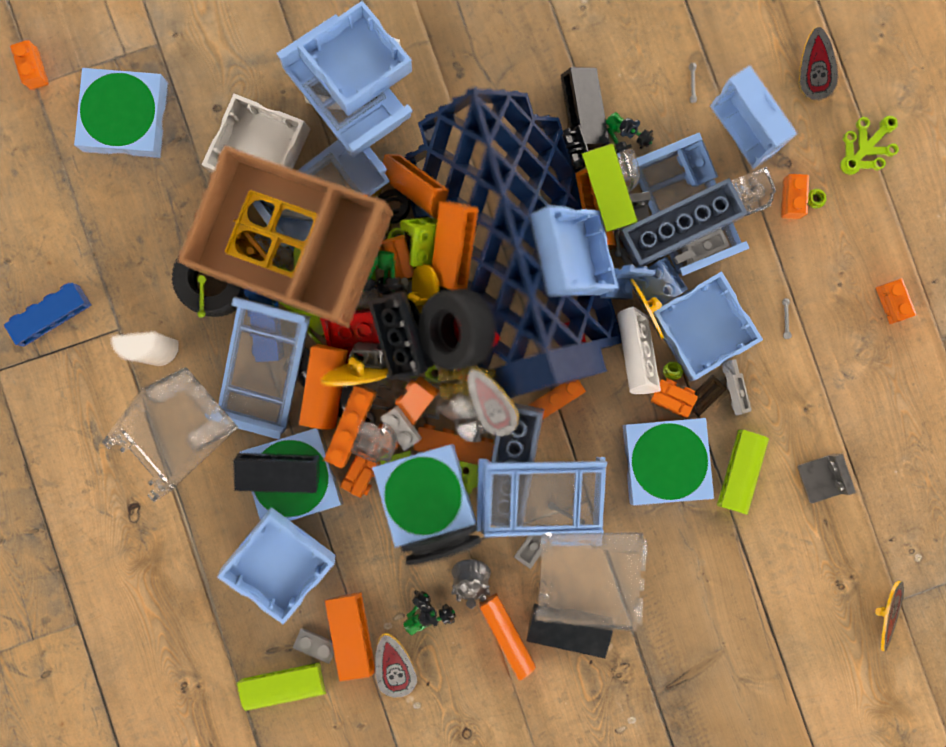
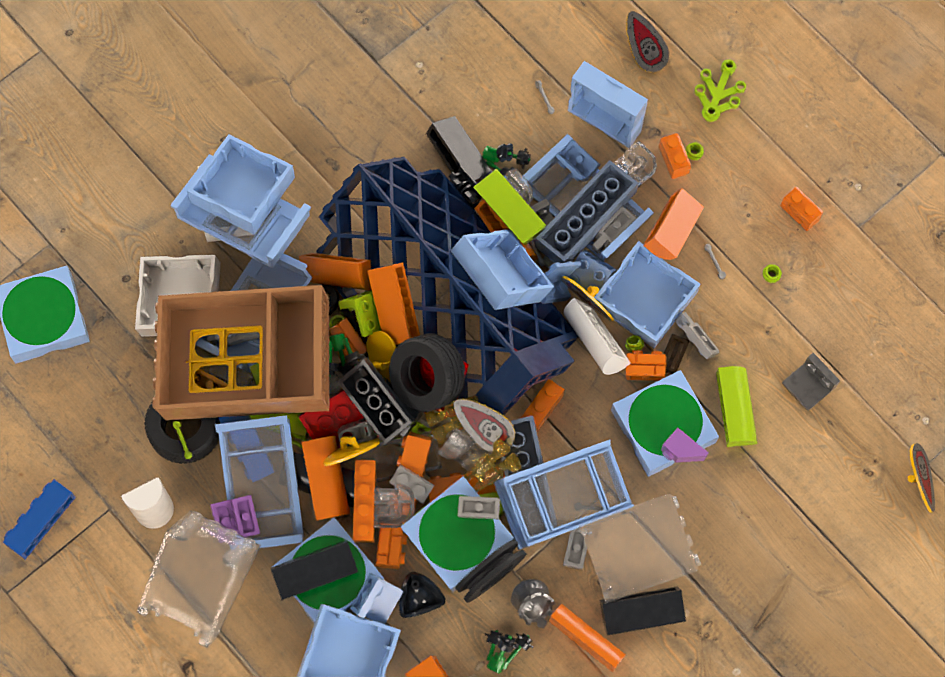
camera: 20 degrees left, 15 degrees down
(227, 388) = (237, 515): none -> medium lavender slope
(324, 523) = (376, 599): none -> bracket
(368, 532) = (419, 596): none -> black hat
(452, 483) = (478, 507): none -> light grey plate
(476, 446) = (486, 470): none -> clear yellow piece
(673, 497) = (682, 448): none -> medium lavender slope
(762, 269) = (673, 225): none -> brick
(842, 353) = (772, 268): none -> lime plate

